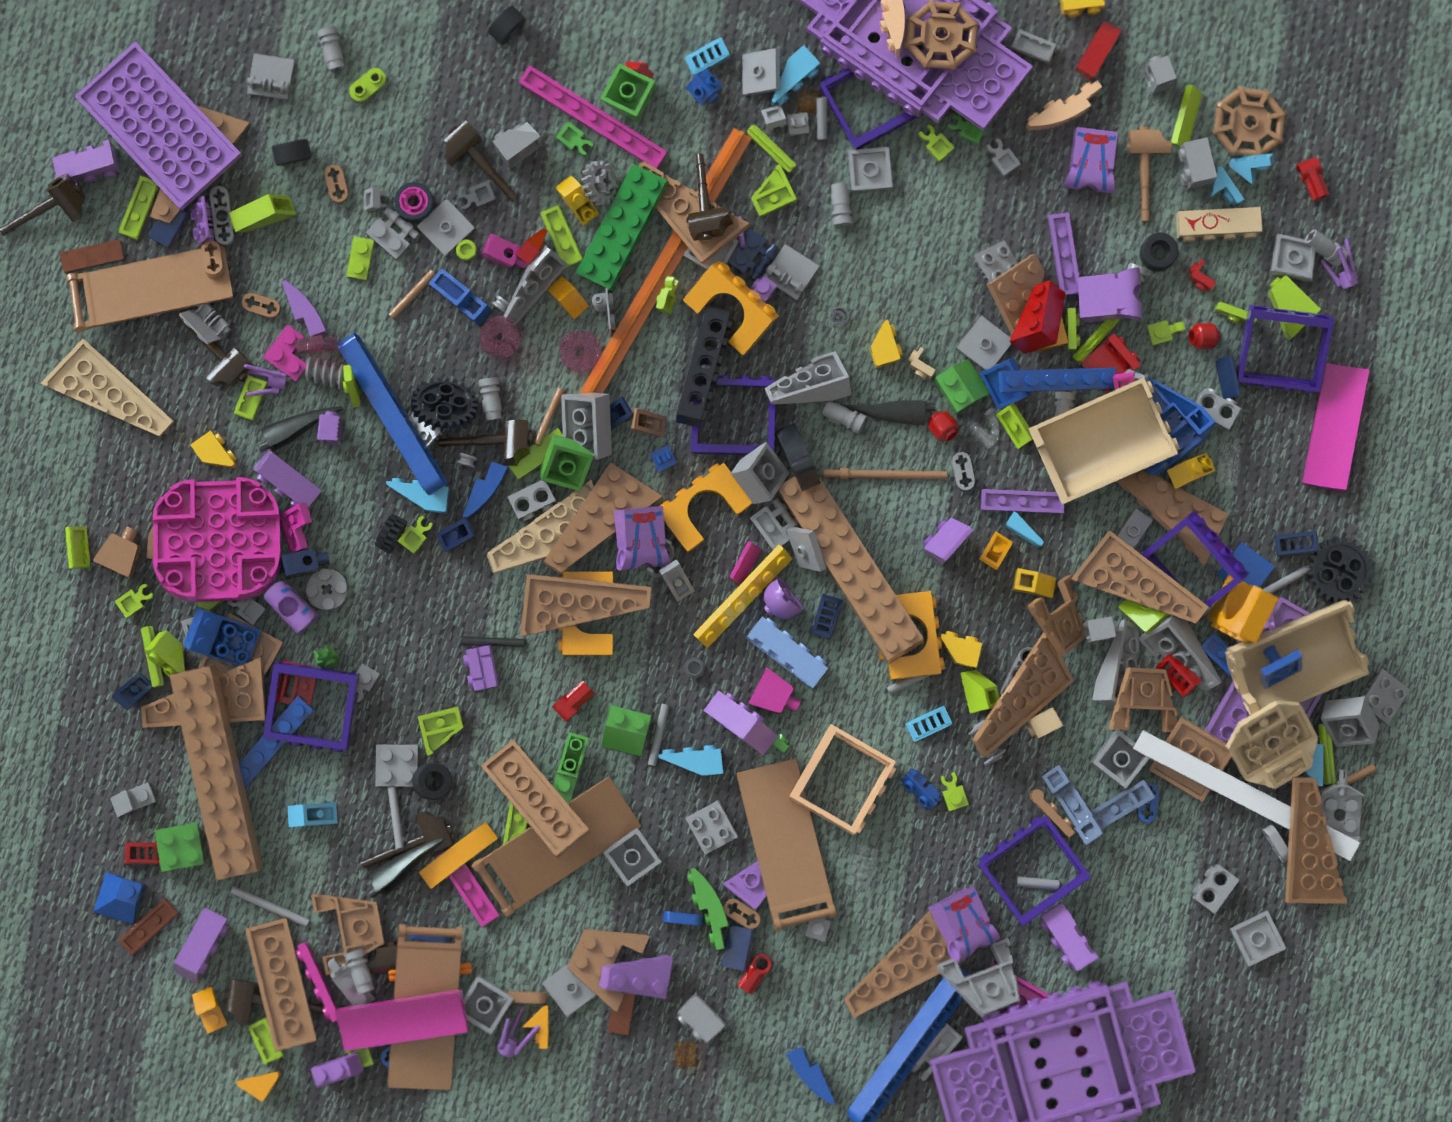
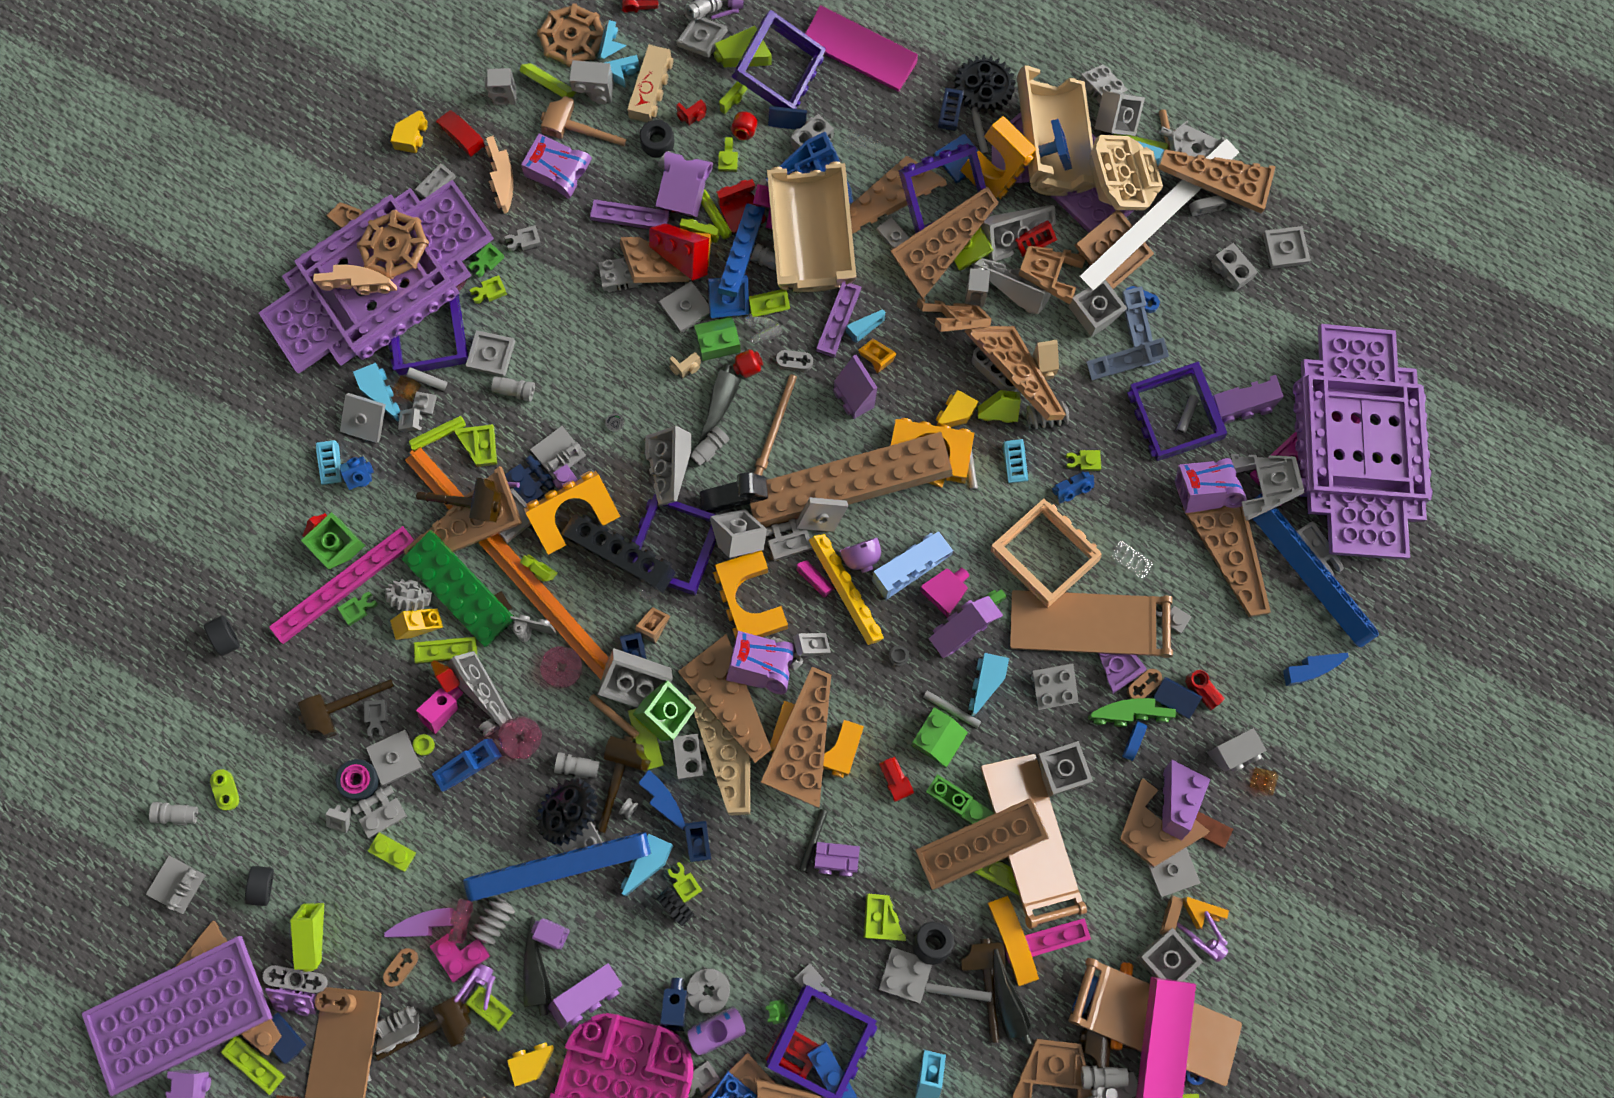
camera: 70 degrees left, 10 degrees down
(292, 523) = (633, 1006): dark pink plate -> none
(332, 186) = (309, 846): medium nougat beam -> none
(350, 386) = (514, 899): lime plate -> none
(412, 294) = (446, 811): medium nougat bar -> none
(516, 143) = (339, 661): light grey slope -> none
(568, 297) = (505, 661): light orange slope -> none
(663, 458) = (691, 622): blue tile -> none
(823, 633) = (884, 526): dark blue slope -> none
(884, 349) = (657, 391): yellow slope -> none
(1033, 583) = (915, 332): yellow slope -> none
(1051, 811) = (1112, 388): medium nougat plate -> none
(1191, 470) = (858, 172): yellow slope -> none
(1216, 650) = (1026, 199): blue plate -> none

